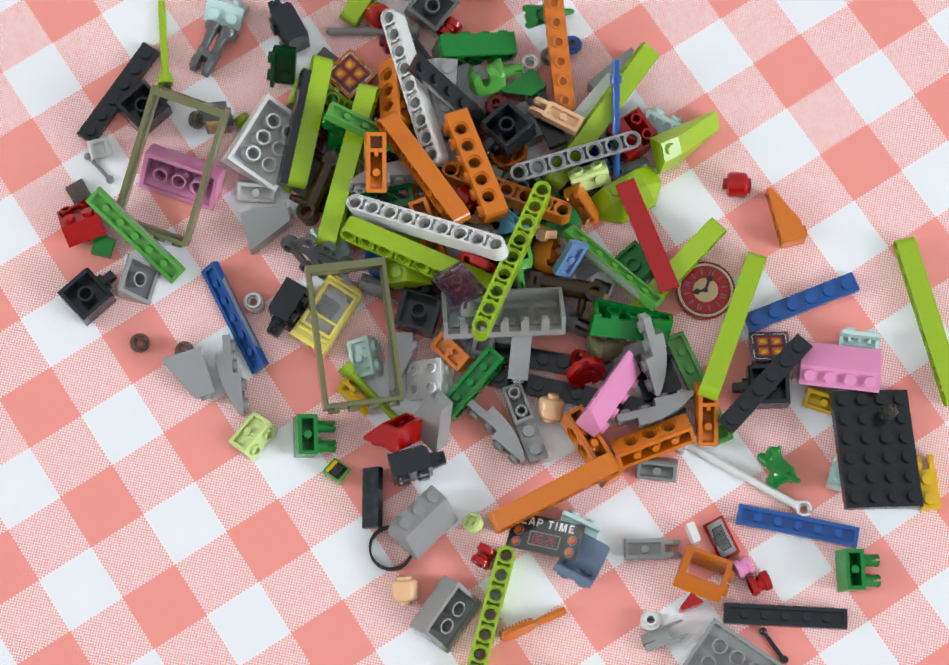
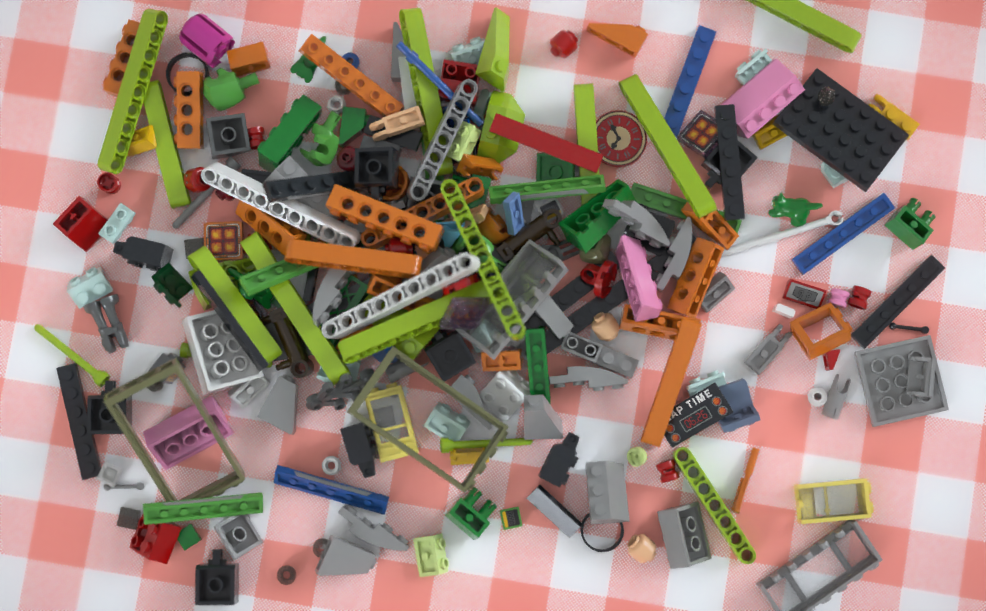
camera: 45 degrees left, 10 degrees up
(375, 161) = (315, 288): orange slope -> none
(396, 432) = (526, 454): red slope -> none
(468, 309) = (489, 323): light grey hinge -> none

